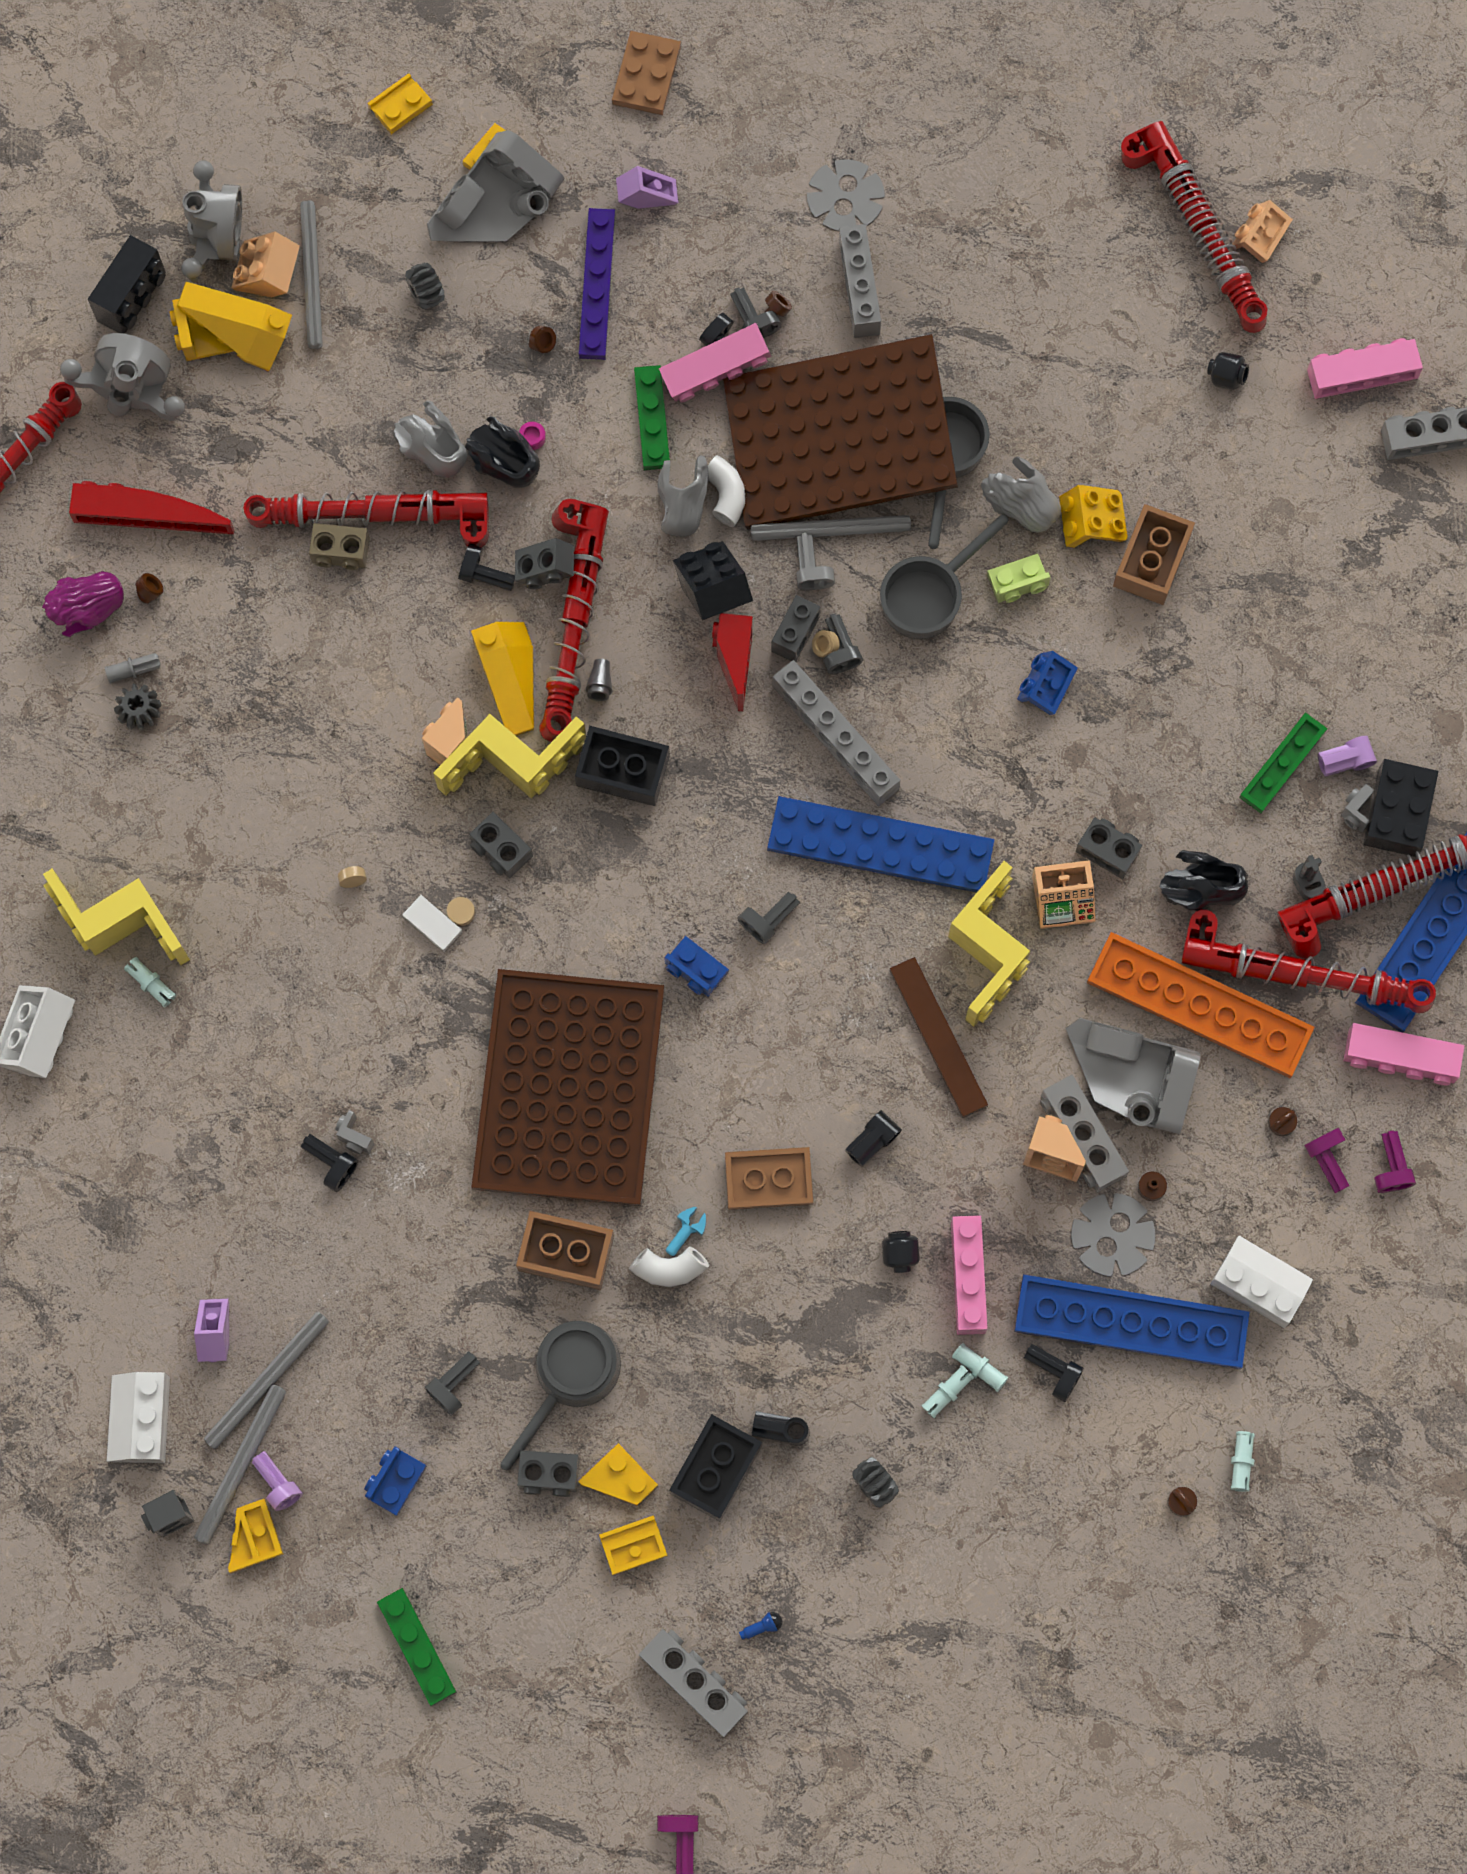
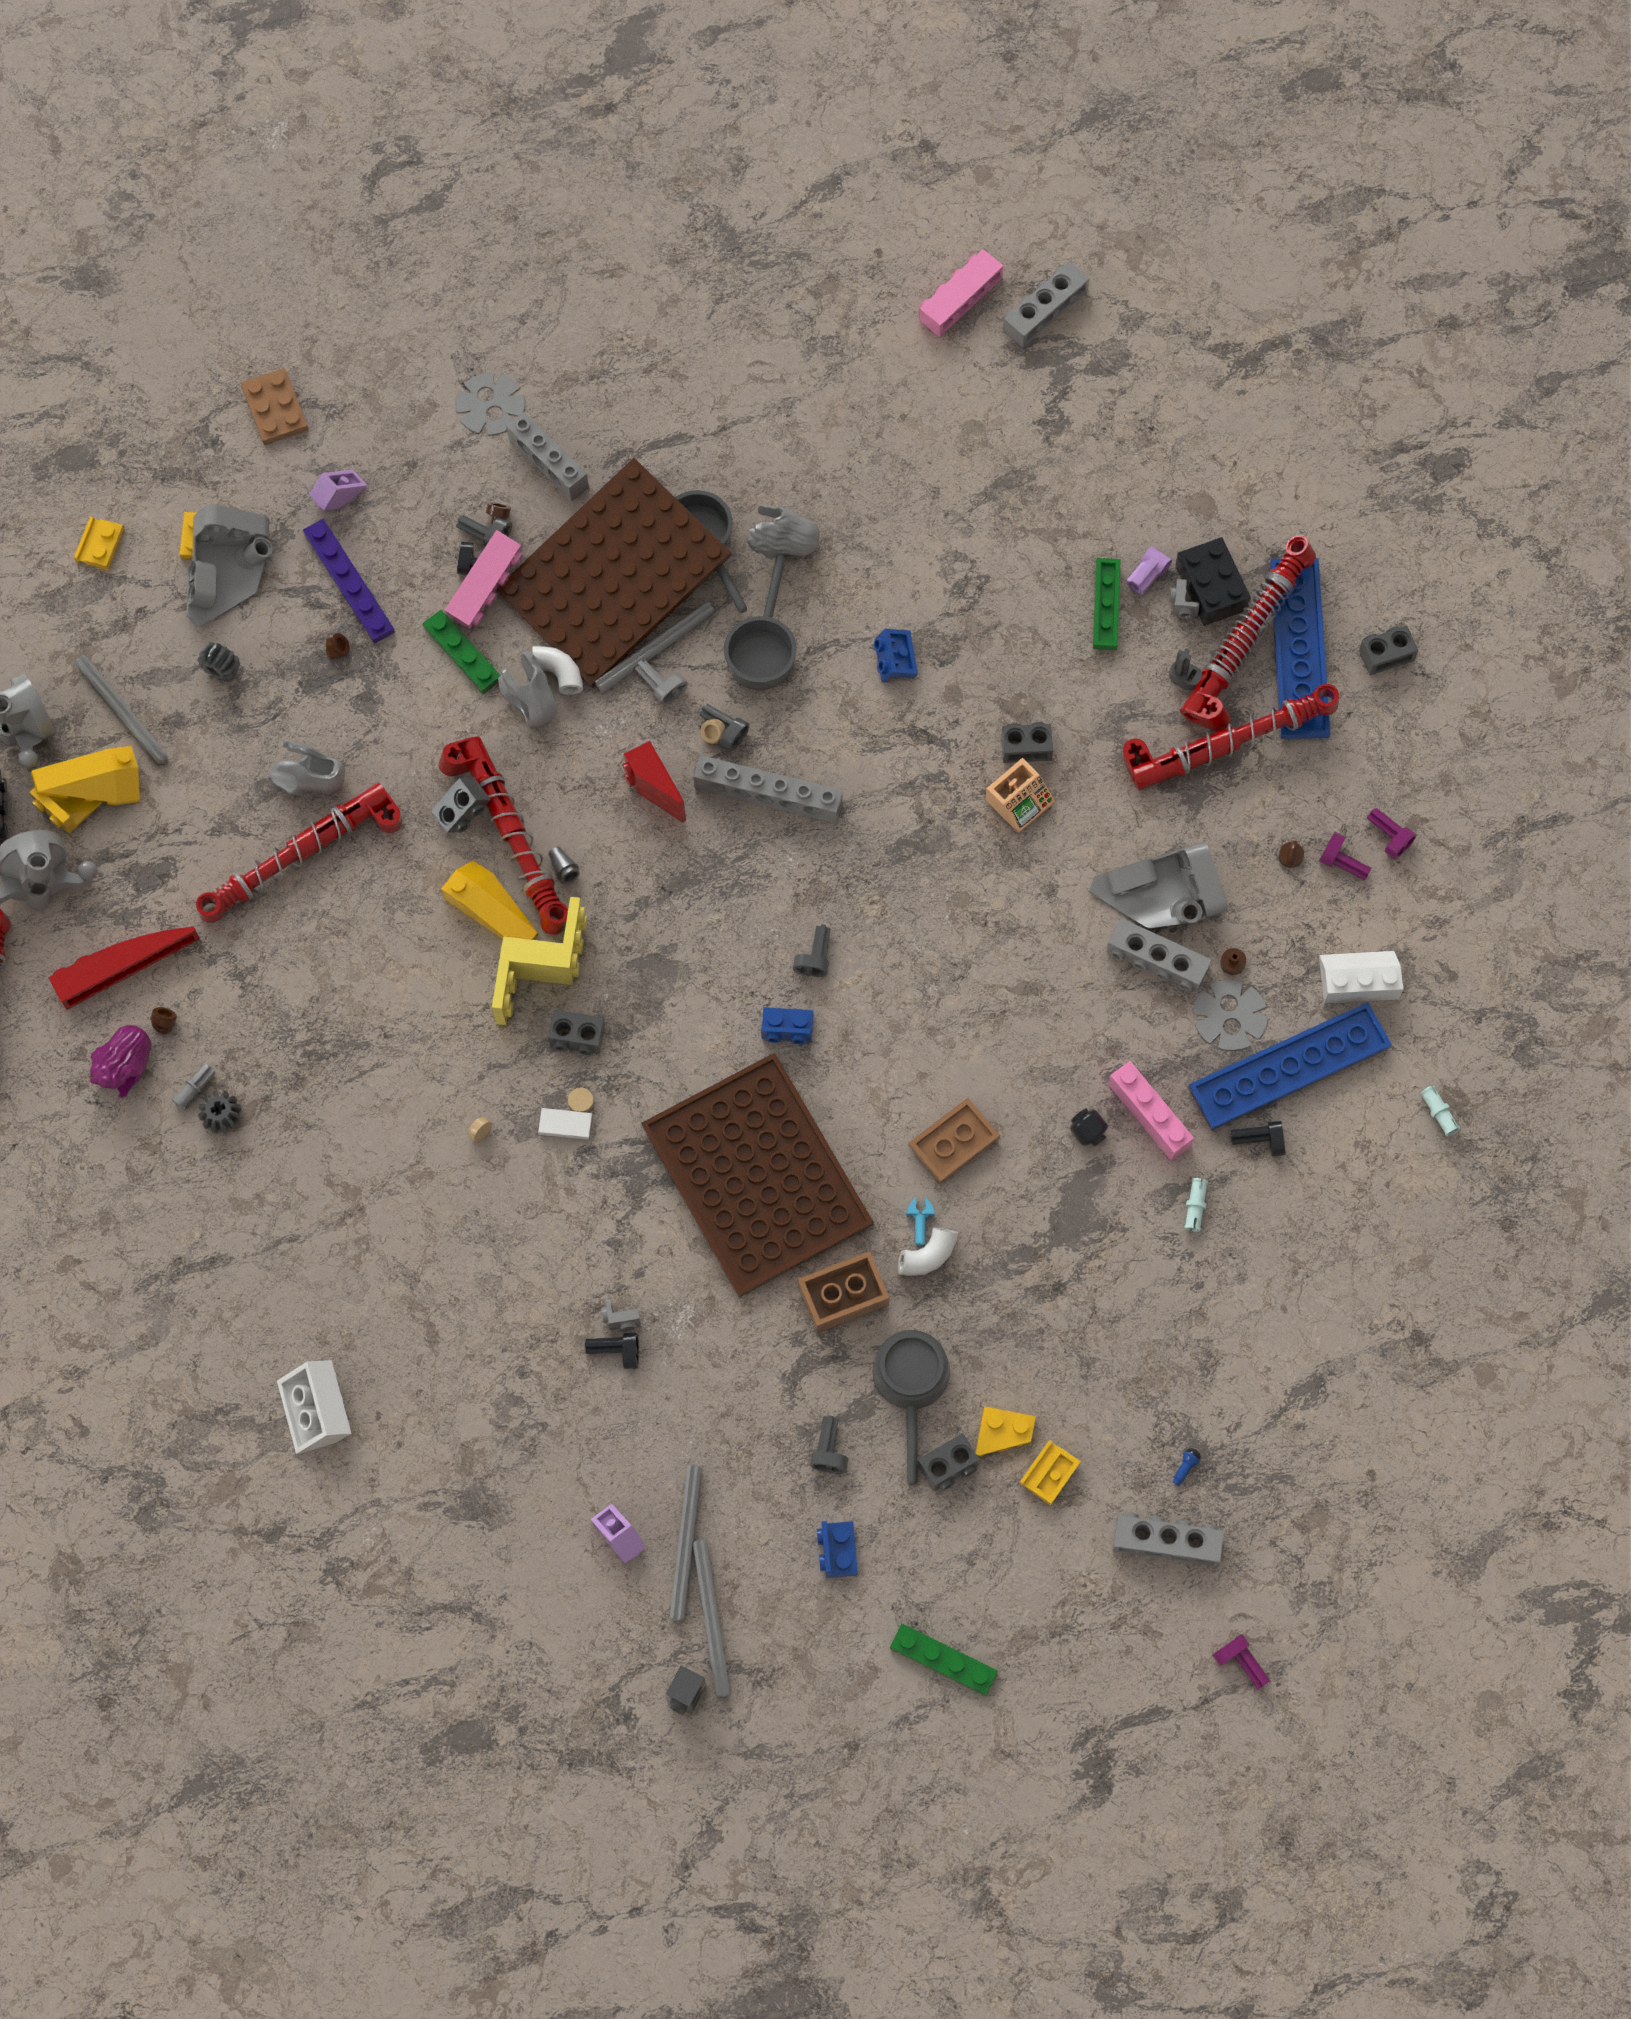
camera: 35 degrees left, 5 degrees down
(114, 917) = (319, 1277): light yellow bracket -> none
(138, 1417) = (607, 1638): white slope -> none
(150, 981) = (379, 1309): light aqua pin -> none
(254, 1537) = (762, 1664): yellow wing -> none
(265, 265) = (81, 724): light nougat slope -> none
(284, 1492) = (761, 1615): lavender piece -> none
(341, 539) = (288, 888): dark tan brick -> none
(446, 733) = (480, 976): light nougat slope -> none
(471, 570) = (406, 846): black piece -> none
(503, 454) = (369, 746): black hair -> none
(534, 434) = (380, 721): dark pink tile -> none
(622, 765) = (627, 914): black brick -> none
(712, 580) = (599, 735): black brick -> none
(715, 1468) = (1070, 1373): black brick -> none
(777, 1428) = (1093, 1314): black piece -> none
(795, 628) = (683, 734): dark grey brick -> none
(875, 1482) = (1193, 1303): dark grey gear -> none
(878, 1133) = (1009, 1055): black piece -> none
(880, 844) = (858, 849): blue plate -> none
(938, 1037) = (1002, 958): reddish brown tile -> none
(980, 1367) = (1206, 1171): light aqua pin -> none
(990, 944) = (994, 865): light yellow bracket -> none
(1018, 578) = (820, 595): yellowish green bracket -> none
(1054, 1150) = (1149, 977): light nougat slope -> none
(1092, 514) = (840, 516): yellow bracket -> none
(1153, 554) = (907, 515): medium nougat brick -> none
(1179, 173) = (729, 241): red piece -> none
(1182, 1501) = (1418, 1168): reddish brown tile -> none
(1200, 1005) = (1173, 811): orange plate -> none
(1204, 882) = (1114, 721): black hair -> none
(1228, 370) = (864, 354): black head -> none
(1262, 230) = (816, 241): light nougat bracket -> none
(1403, 1053) = (1341, 750): bright pink brick -> none

